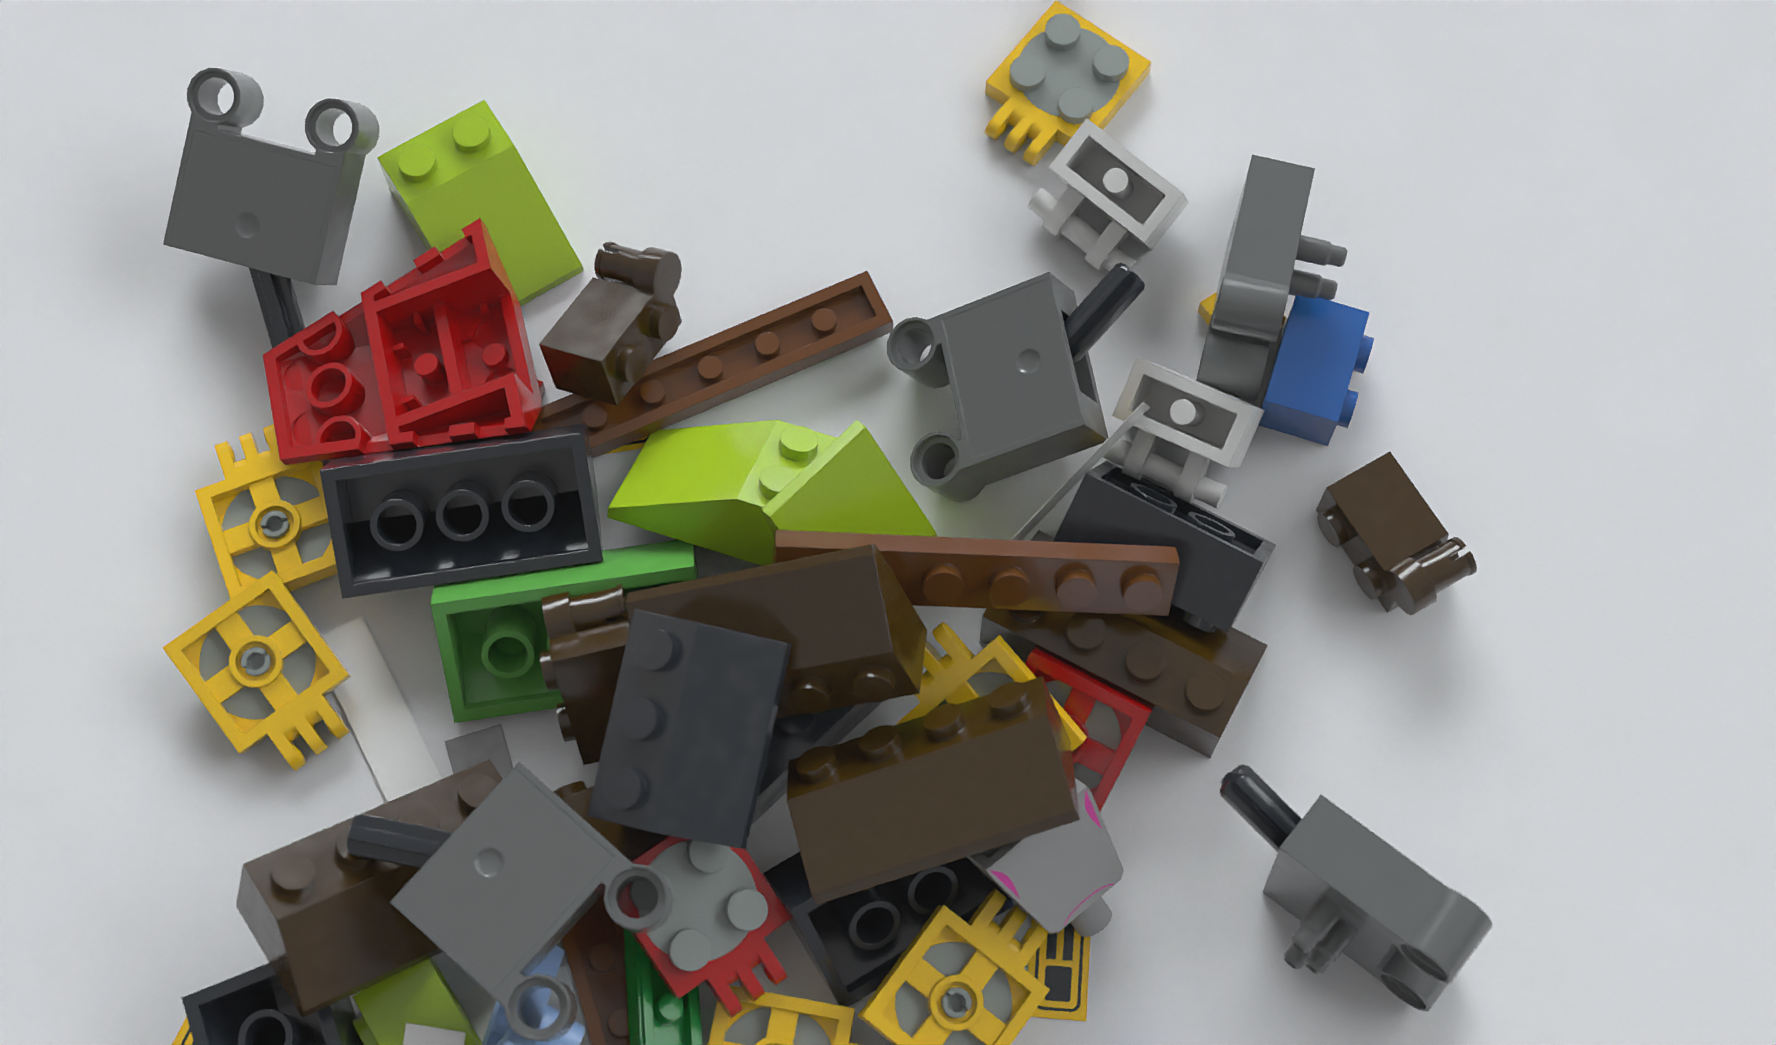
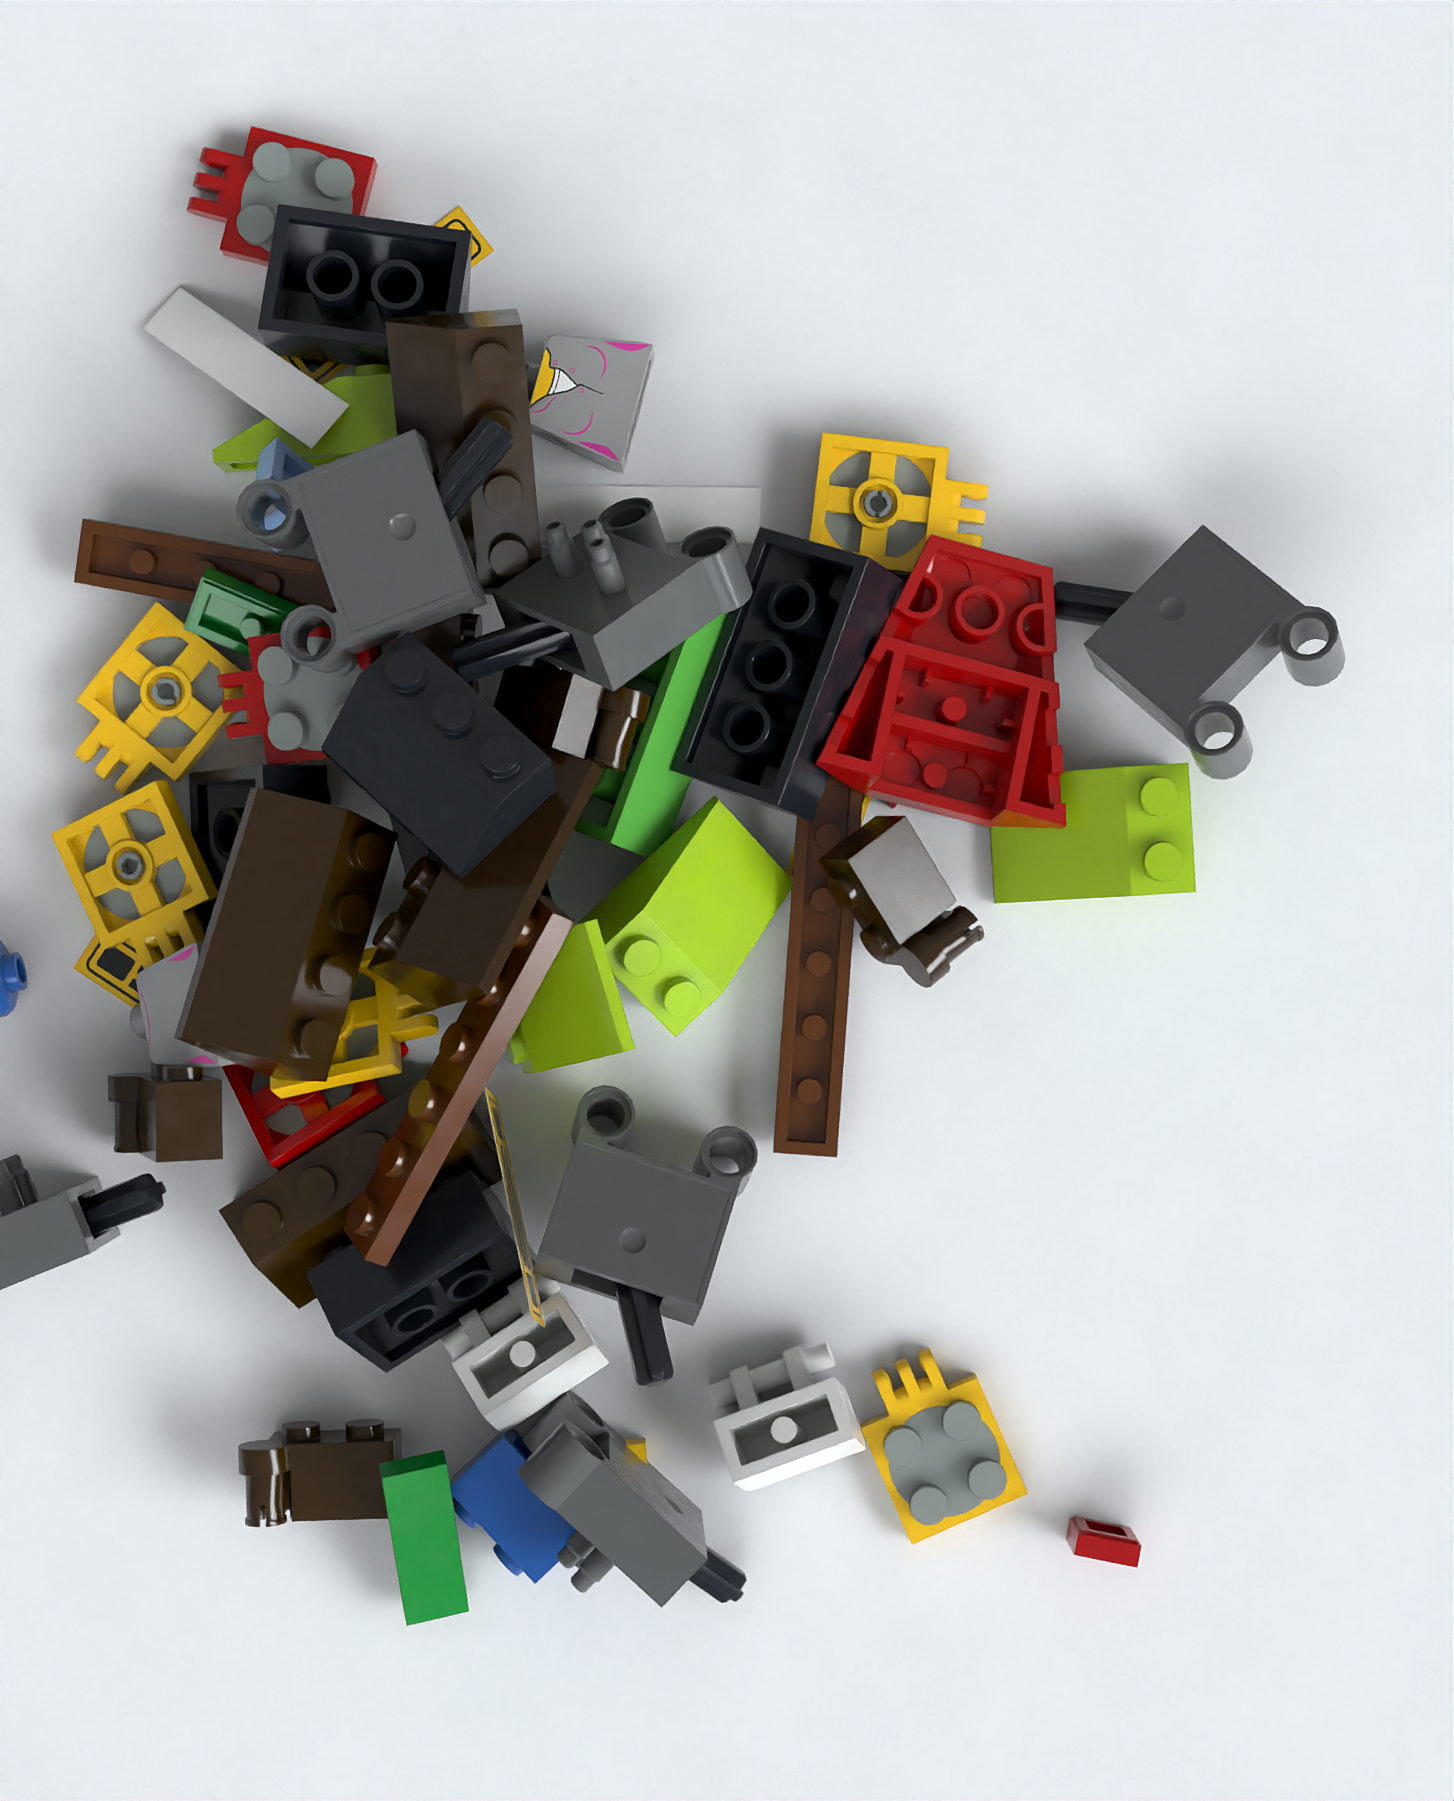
camera: 115 degrees right, 20 degrees up
(263, 670) = (743, 431): yellow piece -> none
(289, 802) = (589, 395): none -> light grey torso
(474, 672) = (610, 598): none -> dark grey piece
(1162, 832) = (168, 1113): none -> dark brown hinge
(1389, 420) = (424, 1537): none -> green tile

